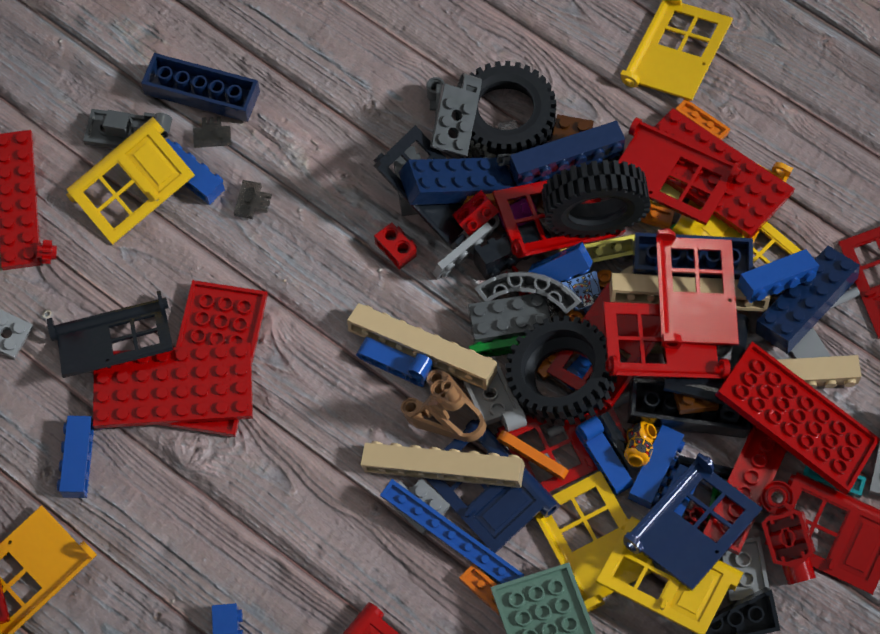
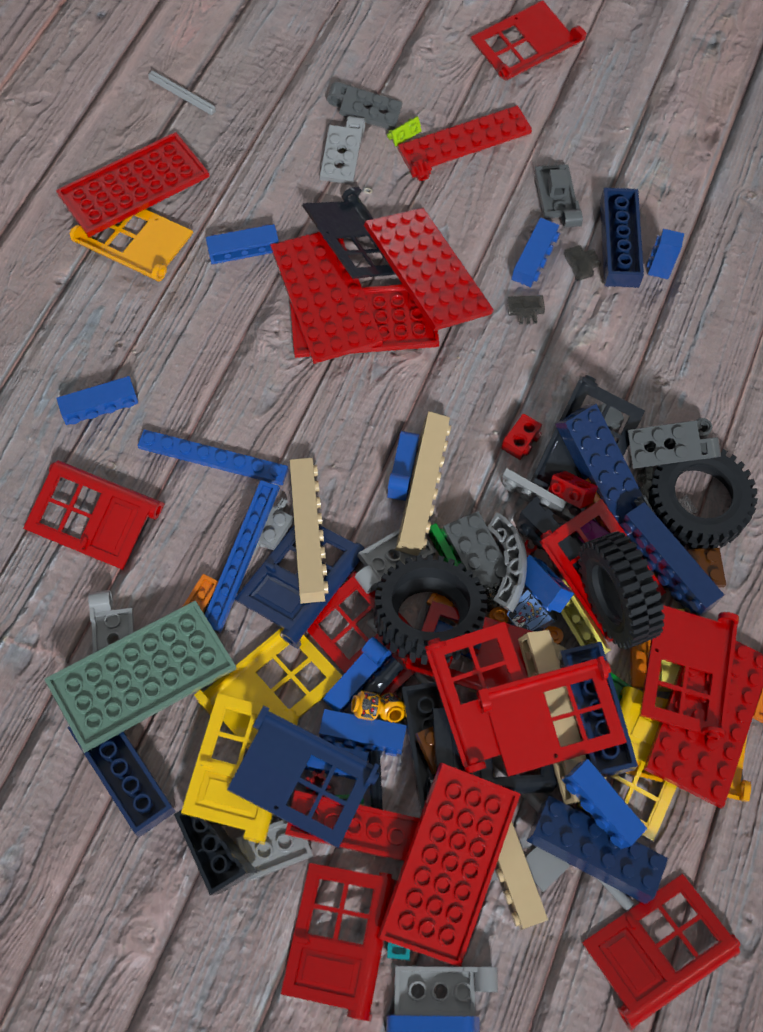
camera: 70 degrees right, 0 degrees up
(149, 164) = (523, 220): yellow door -> none
(173, 277) = (428, 268): none -> red plate
(241, 52) = (665, 253): none -> blue brick
(327, 545) = (213, 457): none -> blue plate
(444, 396) = (361, 504): medium nougat connector -> none
(532, 455) = (339, 608): orange beam -> none
(787, 534) = (317, 881): red brick -> none

